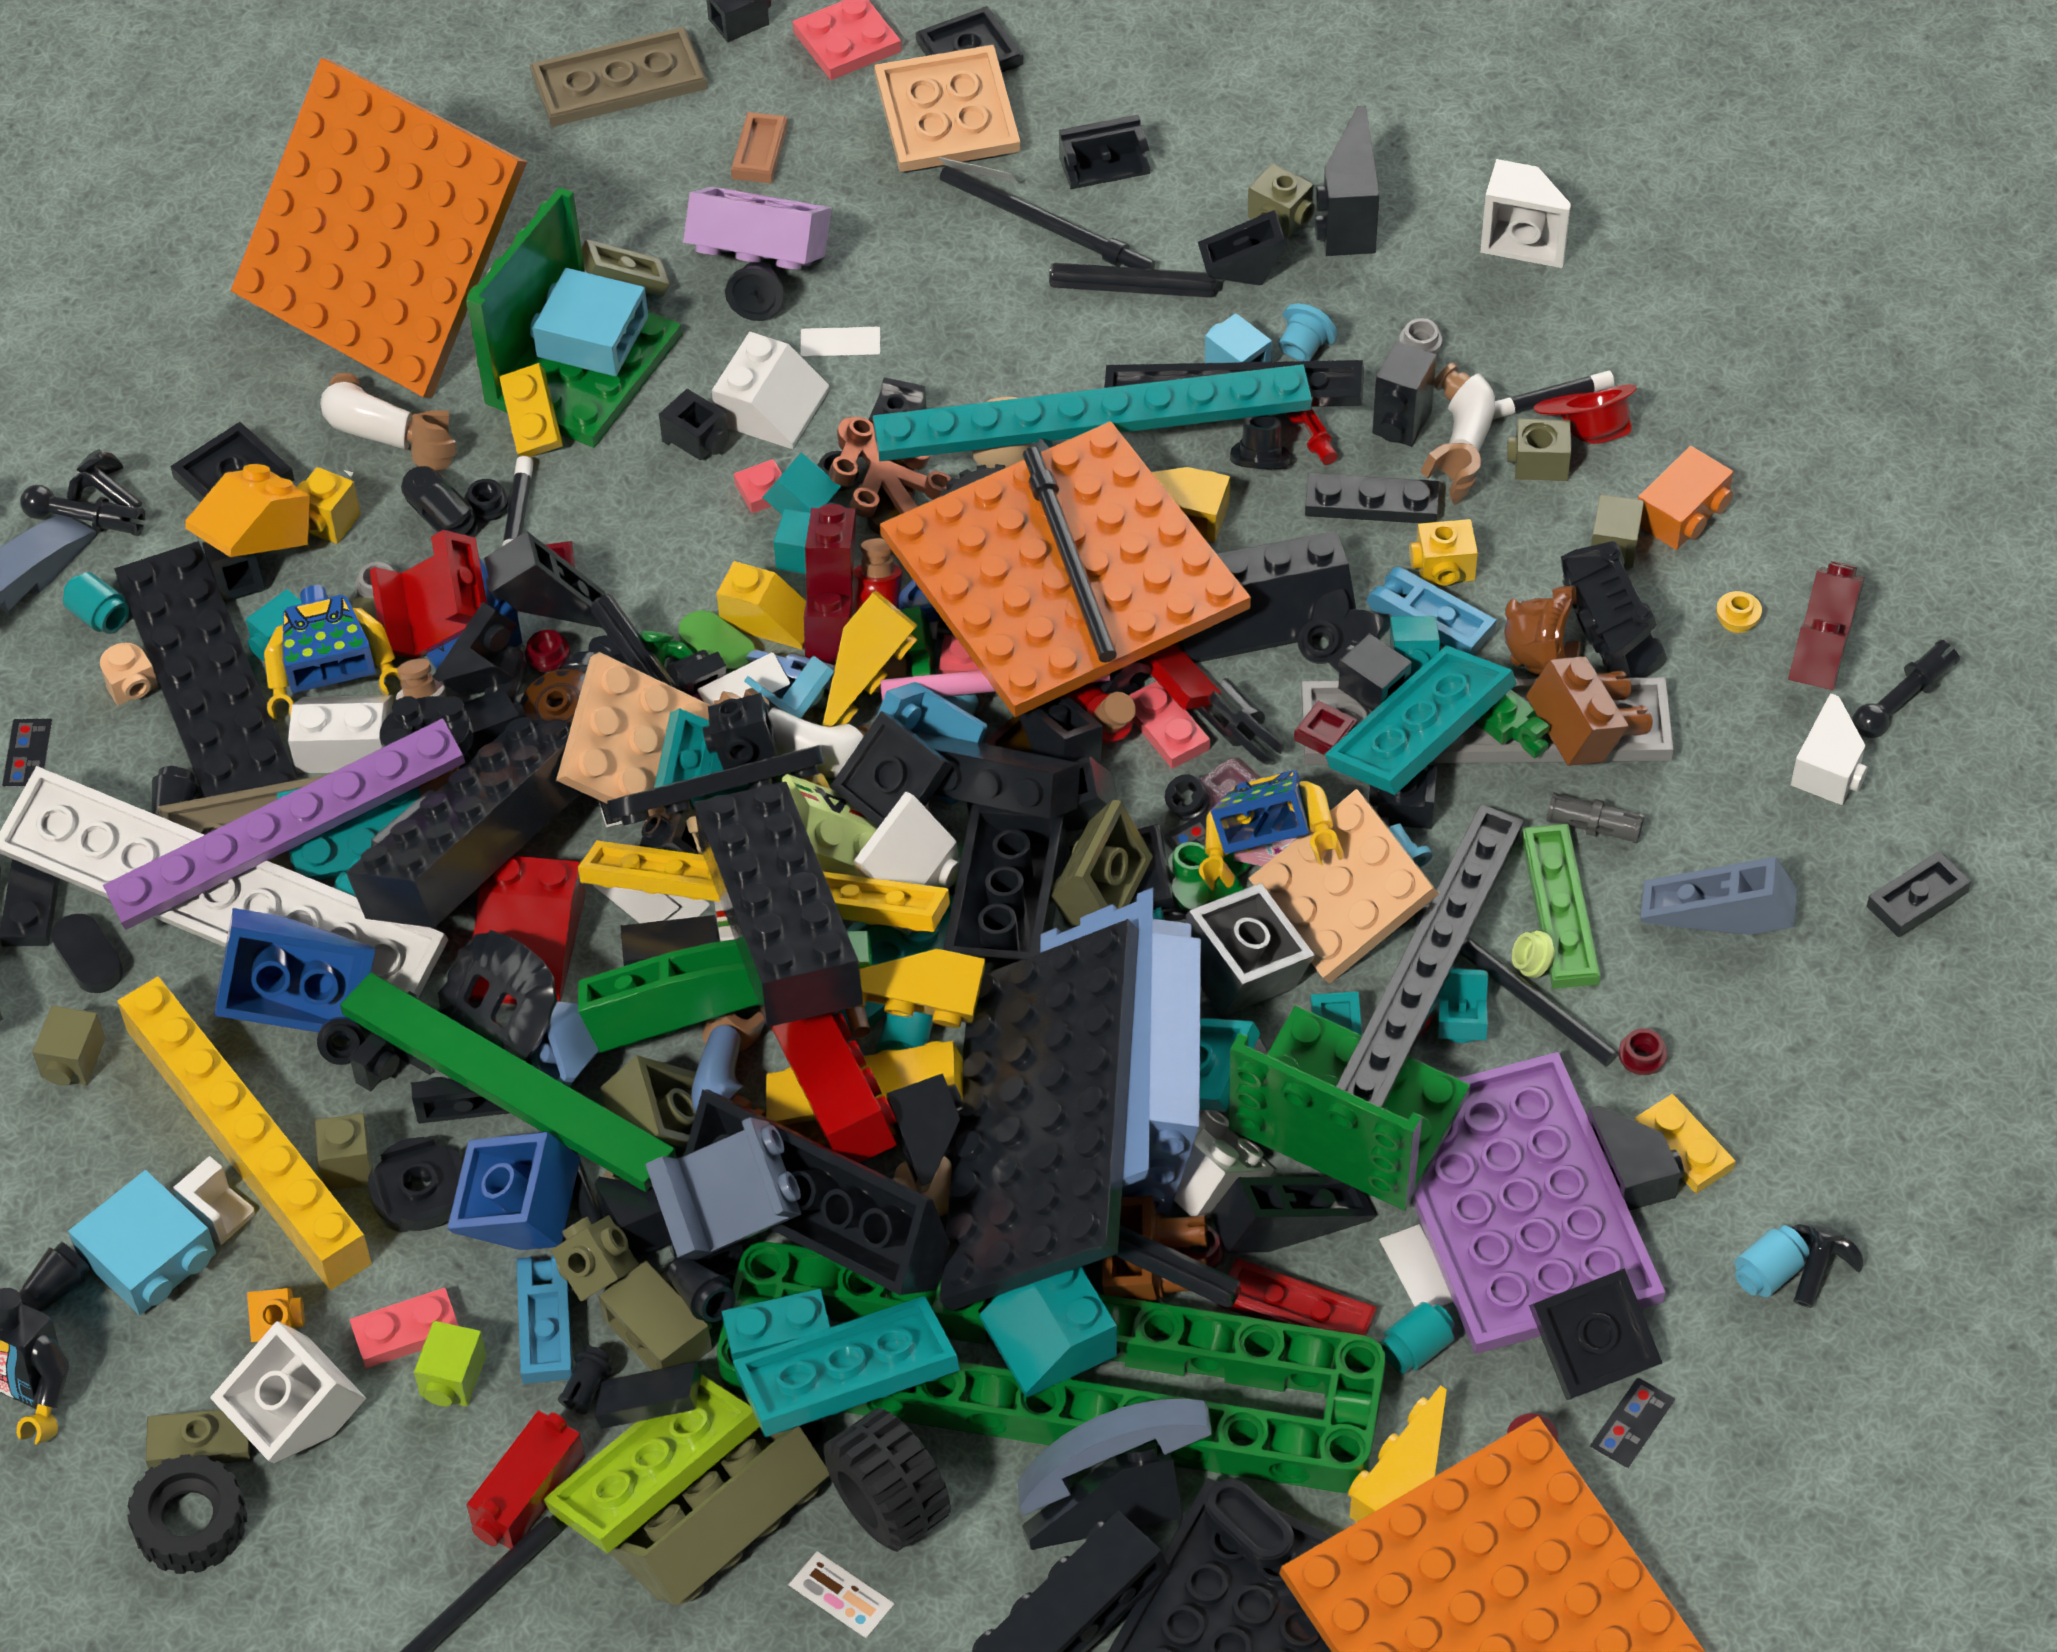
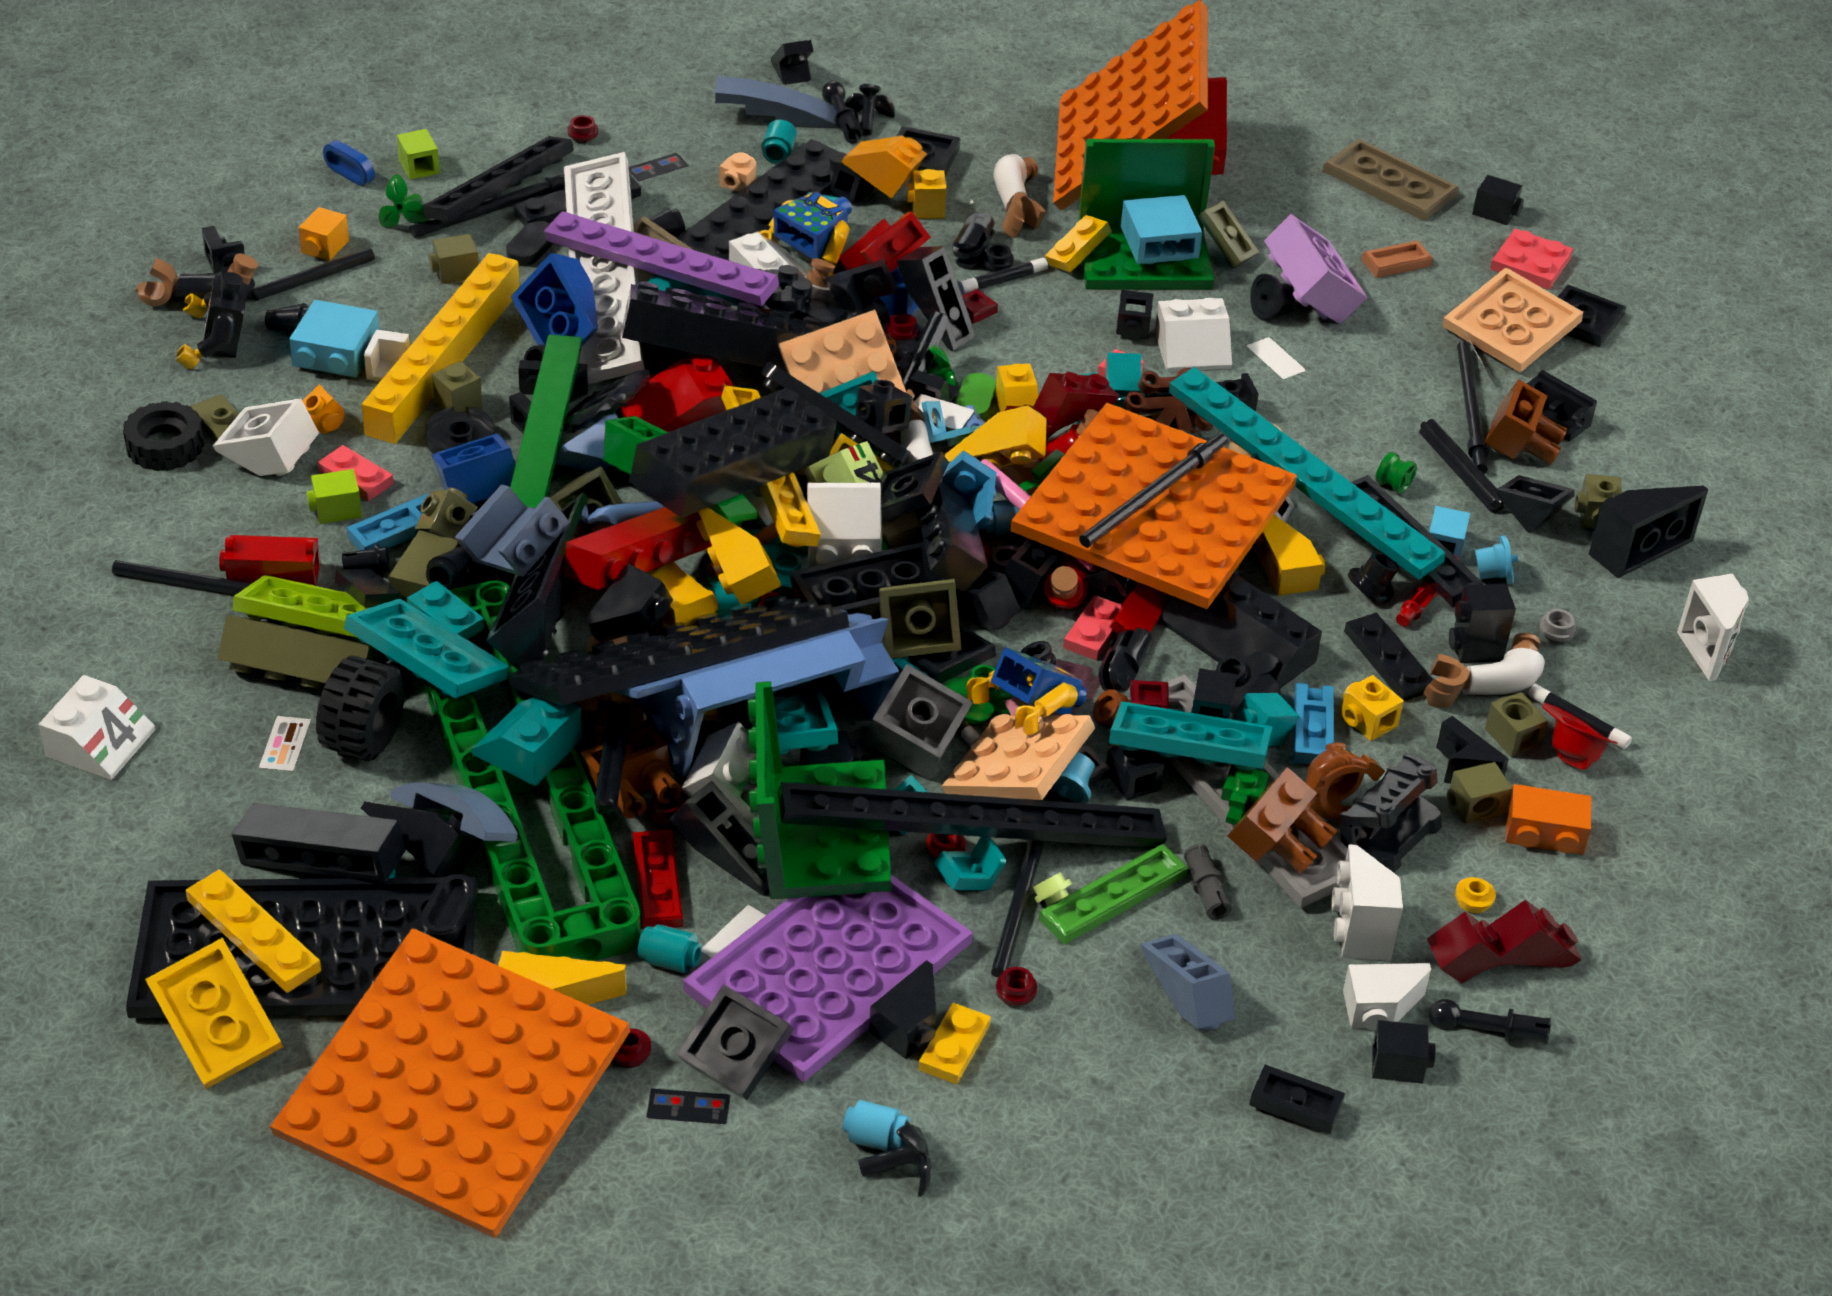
camera: 55 degrees right, 10 degrees down
(1114, 340) = (1396, 472): none -> green wheel
(1121, 195) = (1522, 427): none -> dark orange brick
(1311, 766) = (1107, 706): none -> dark orange tile
(1566, 507) = (1466, 749): none -> black slope
(1728, 702) = (1367, 907): none -> white slope
(1909, 779) = (1401, 1052): none -> black brick

